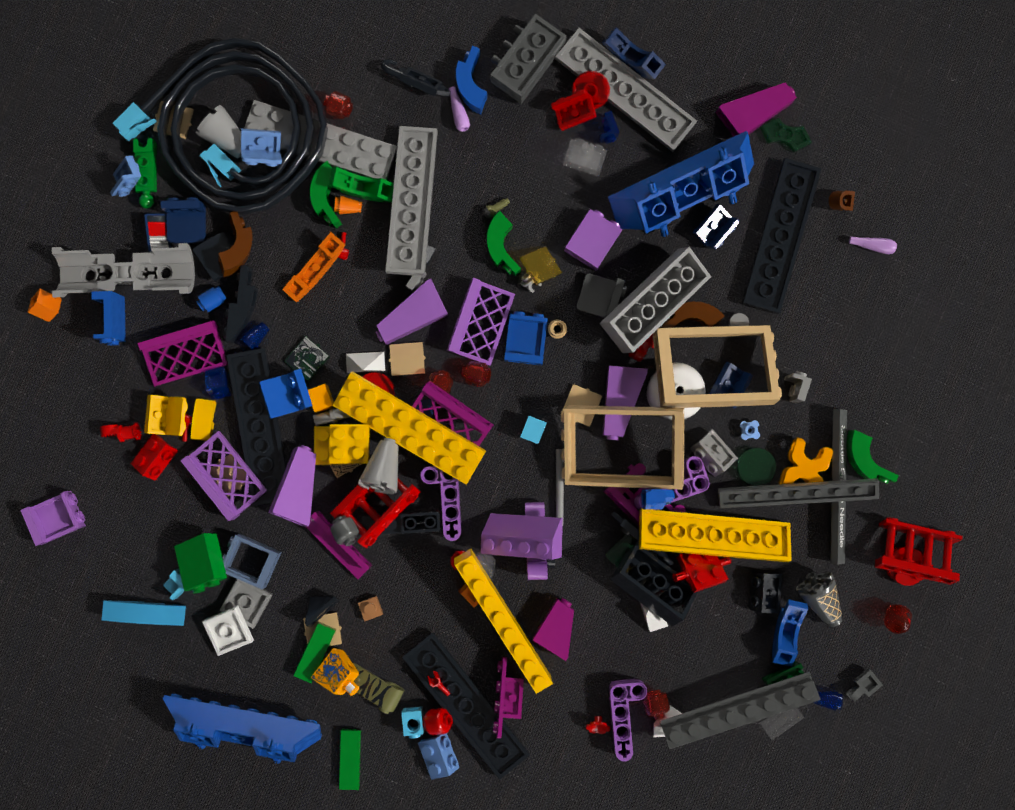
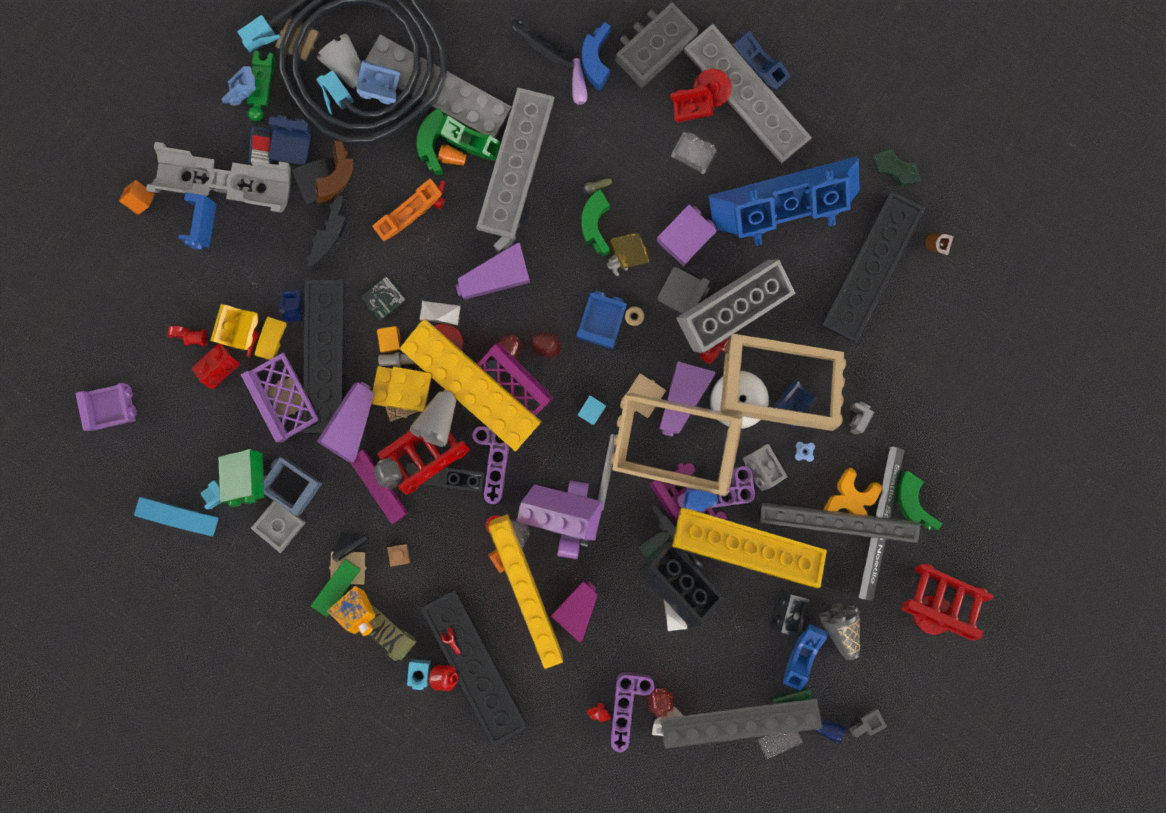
camera: 10 degrees right, 0 degrees up
(178, 337) = (263, 253): magenta fence -> none
(211, 299) = (301, 222): blue brick -> none
(228, 630) = (255, 549): white tile -> none
(255, 335) = (337, 266): clear blue cone -> none
(267, 733) = (275, 657): blue piece -> none
(285, 394) = (355, 329): blue bracket -> none
(338, 105) = (461, 55): clear red head -> none
(350, 759) = (350, 698): green tile -> none
(407, 359) = (481, 317): tan piece -> none
(438, 756) = (437, 712): medium blue bracket -> none
(464, 320) = (549, 283): medium lavender fence -> none
(510, 697) = (517, 669): magenta bracket -> none
(609, 124) = (725, 126): clear blue bracket -> none
(697, 311) = (773, 324): reddish brown arch -> none
(701, 570) = (730, 579): red plate -> none
(715, 227) = (809, 246): dark blue bracket -> none
(739, 320) = (814, 341): light grey tile -> none
(755, 109) = (871, 137): magenta slope -> none
(756, 466) = (804, 488): clear green tile -> none
(880, 245) = (966, 293): lavender piece -> none
(898, 619) = (914, 664): clear red head -> none

